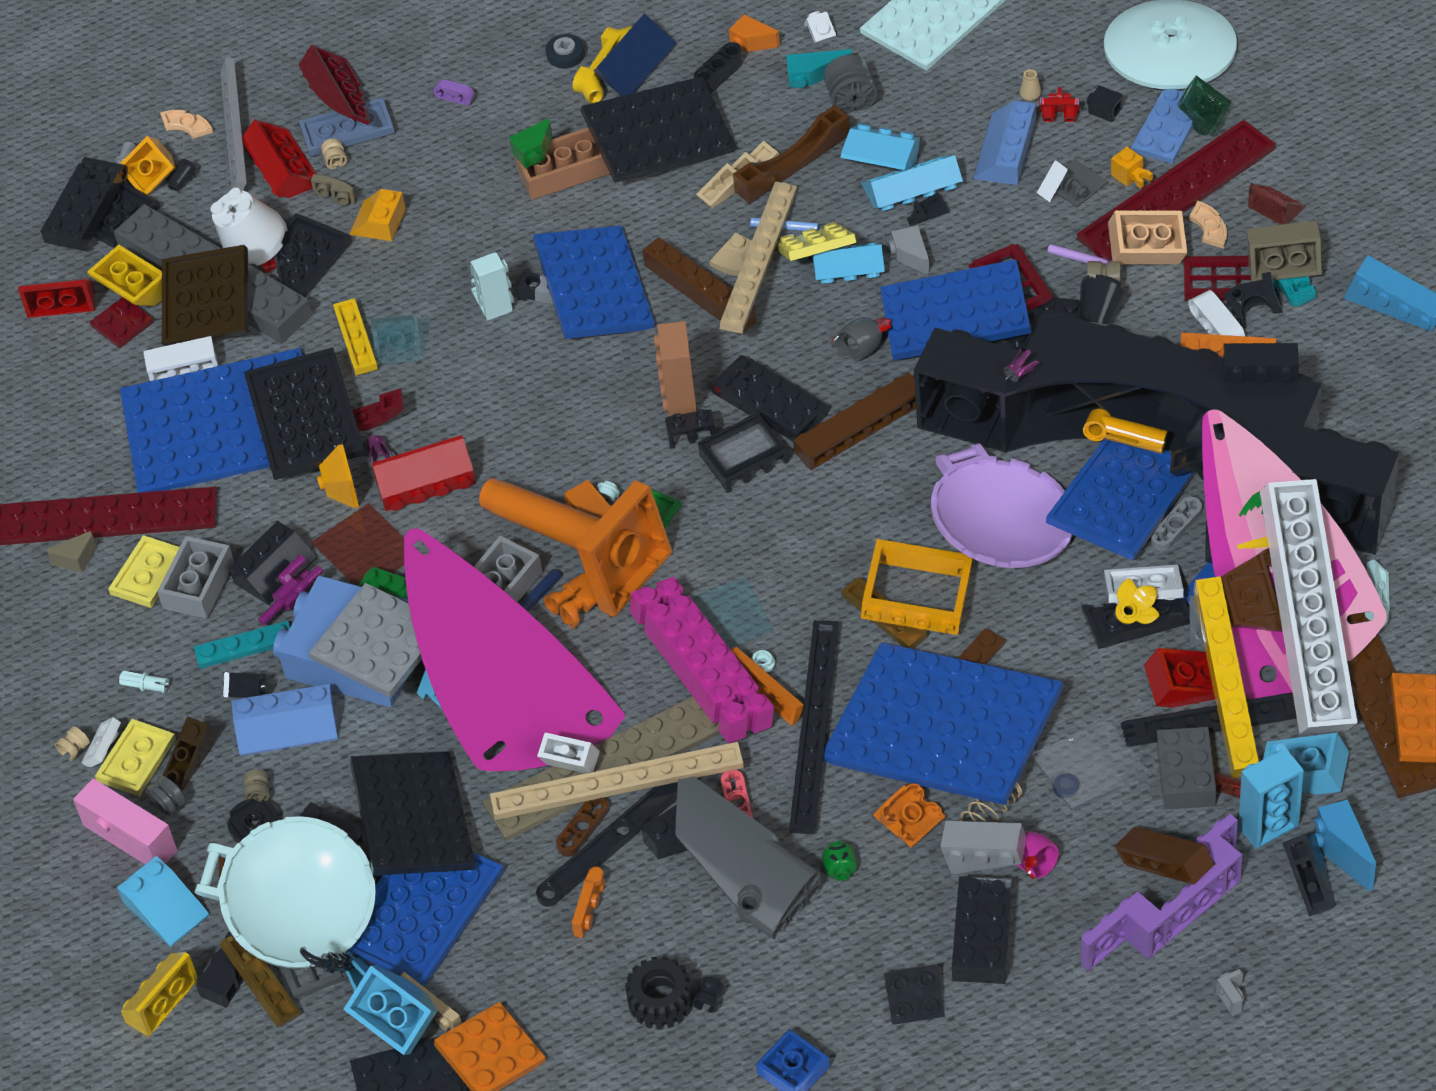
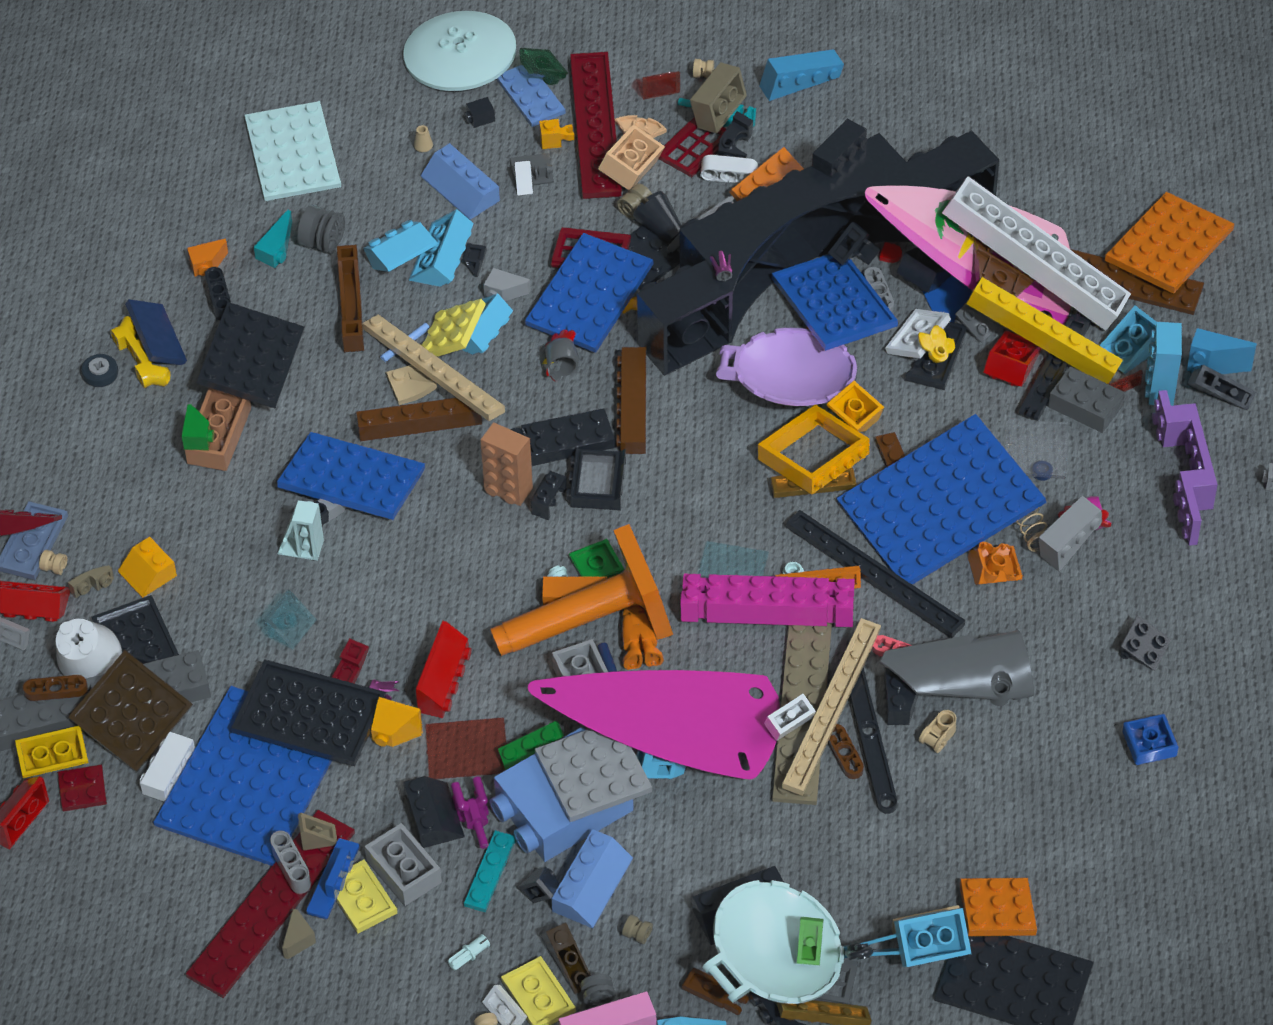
camera: 60 degrees left, 0 degrees up
(135, 498) = (293, 870): none -> light grey beam
(142, 537) = (333, 878): none -> blue bracket
(178, 494) = (316, 832): none -> dark tan slope
(185, 225) = (71, 692): none -> reddish brown beam
(246, 810) = (667, 961): black plate -> none
(320, 918) = (810, 941): none -> bright green slope
(355, 336) = (254, 645): yellow plate -> none
(411, 813) = (755, 840): black plate -> none
(422, 917) = (840, 875): blue plate -> none
(454, 92) = (69, 456): medium lavender beam -> none
(588, 899) = (916, 782): orange hinge -> none
(659, 1010) = (1031, 794): black tyre -> none
(662, 886) = (937, 733): none -> tan piece
(709, 992) = (1051, 754): black wheel -> none
(722, 184) = (332, 340): tan slope -> none
(820, 26) = (238, 216): white bracket -> none
(839, 860) = (1001, 621): green head -> none
(981, 930) = (1125, 577): black brick -> none
(991, 588) = (856, 407): none -> light orange slope
(1059, 103) = (454, 135): red hips -> none
(1075, 255) = (598, 206): lavender bar -> none
(1124, 432) = (775, 273): light orange piece -> none
(1164, 855) = (1156, 445): reddish brown brick -> none
(1330, 225) = (707, 67): none -> tan wheel

